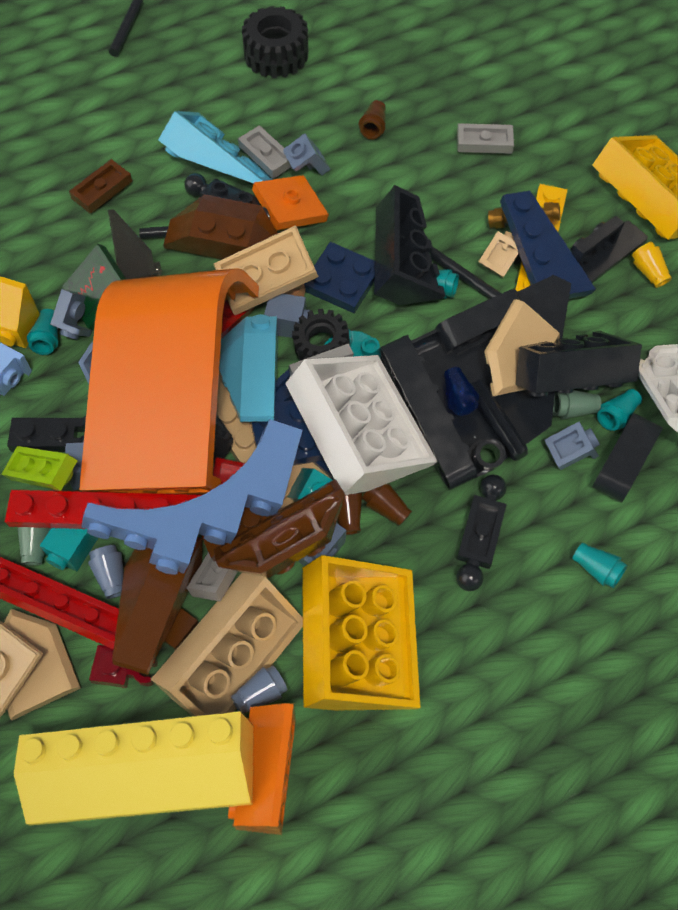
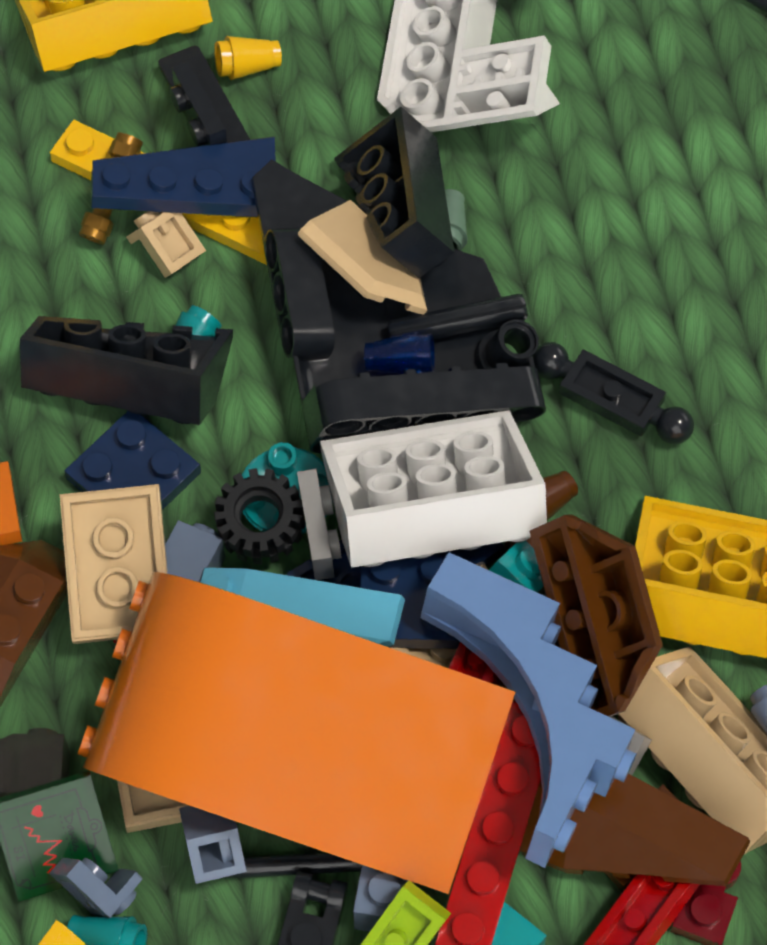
camera: 75 degrees left, 0 degrees up
(108, 570) = (561, 894): sand blue cone -> none
(464, 275) = (191, 296): black bar -> none
(572, 445) = (512, 245): sand blue bracket -> none
(600, 564) = (691, 267): teal cone -> none
(617, 411) = (471, 173): teal cone -> none
(627, 457) = (546, 187): black beam -> none

